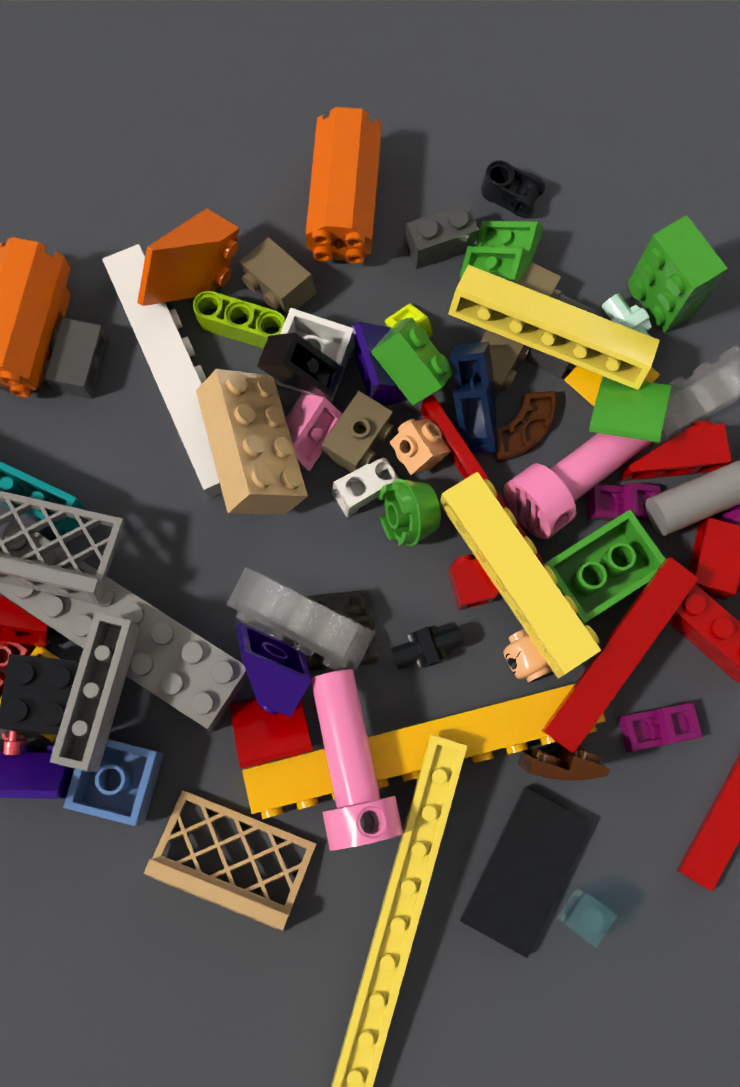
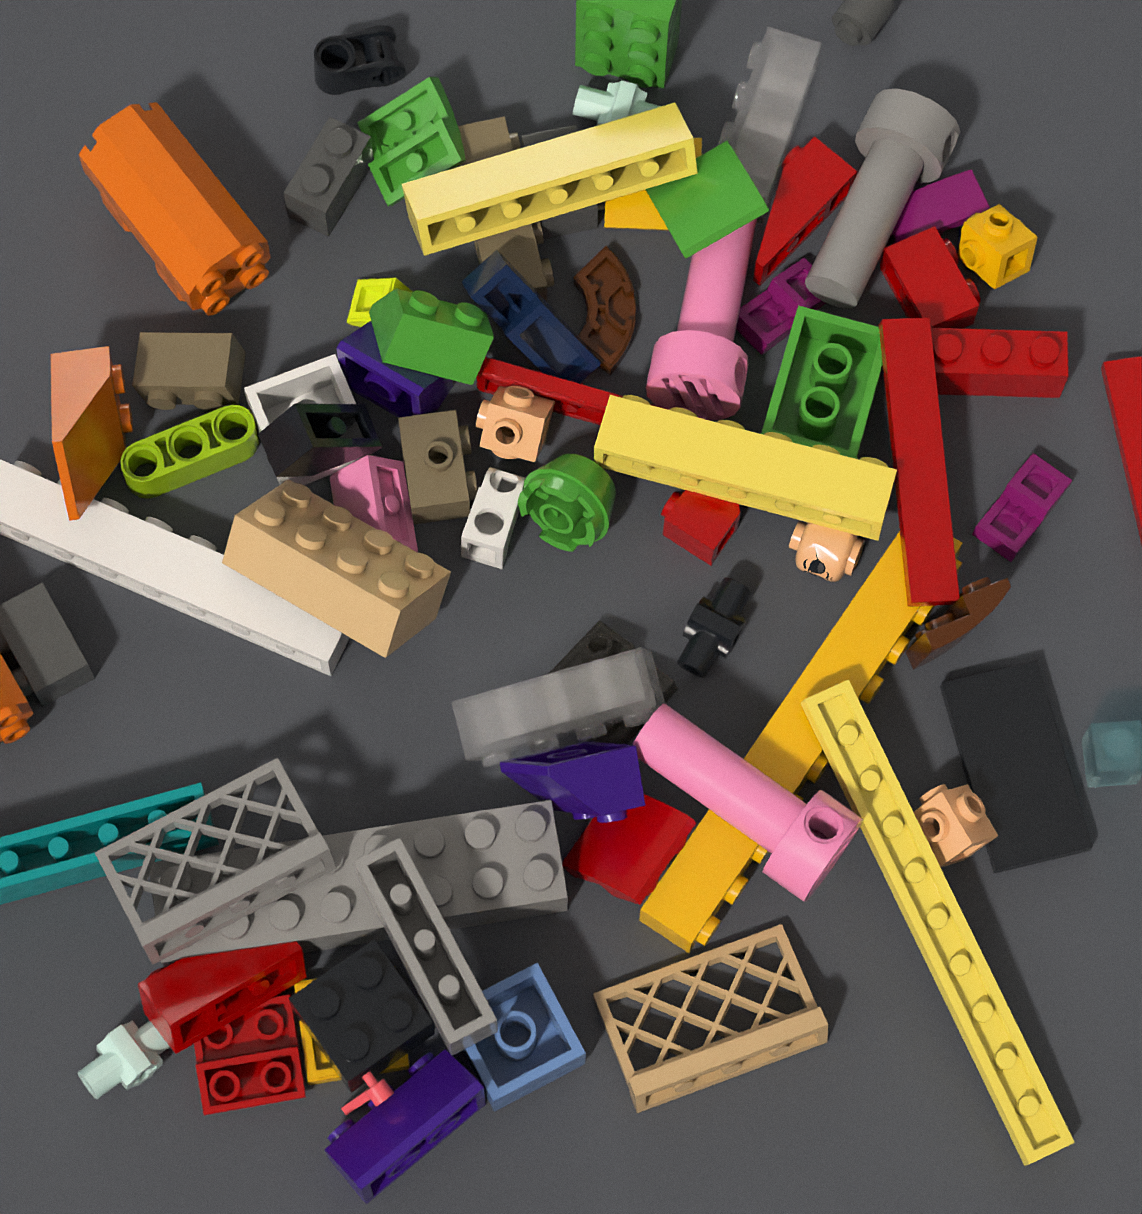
camera: 40 degrees left, 5 degrees down
(457, 875) = (954, 823): none -> light nougat brick

